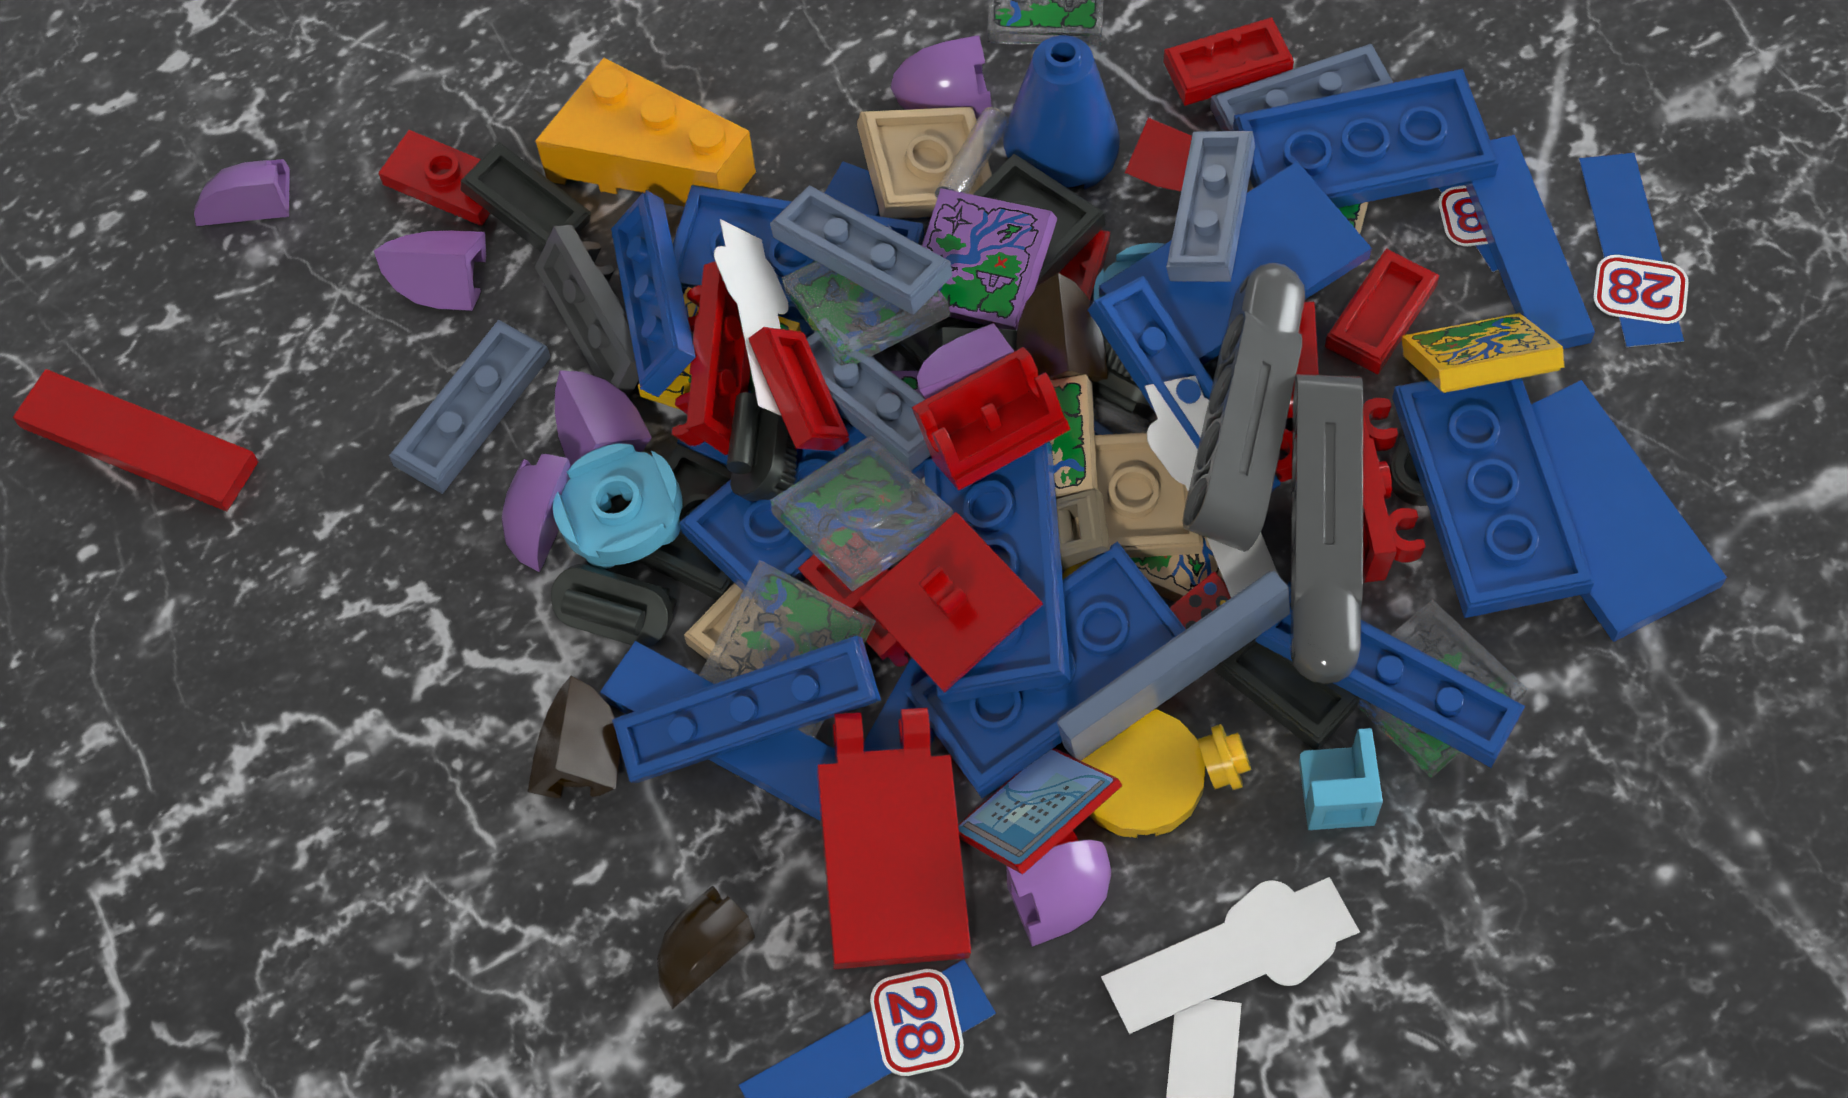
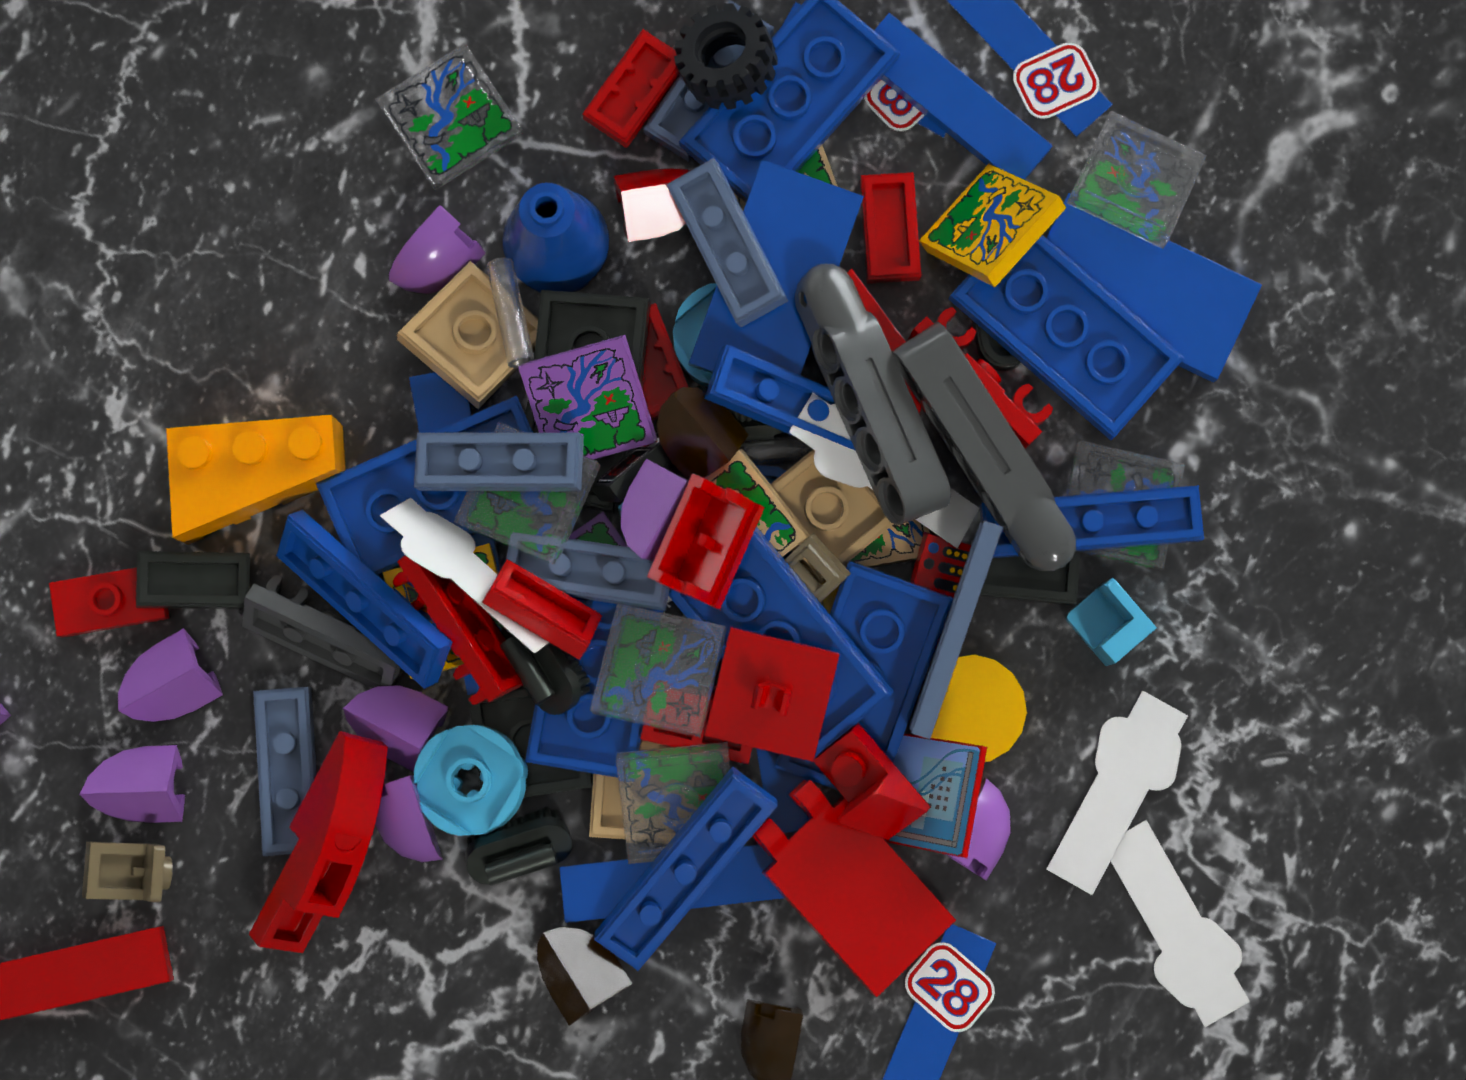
camera: 45 degrees left, 20 degrees up
(265, 386) = (126, 871): none -> dark tan bracket
(337, 330) = (137, 785): none -> medium lavender brick
(448, 471) = (332, 844): none -> red slope
(982, 759) = (876, 790): none -> red slope
(1224, 758) = (1023, 661): yellow plate -> none
(1328, 67) = (714, 33): none -> black tyre
(1660, 409) = (1136, 179): none -> clear tile

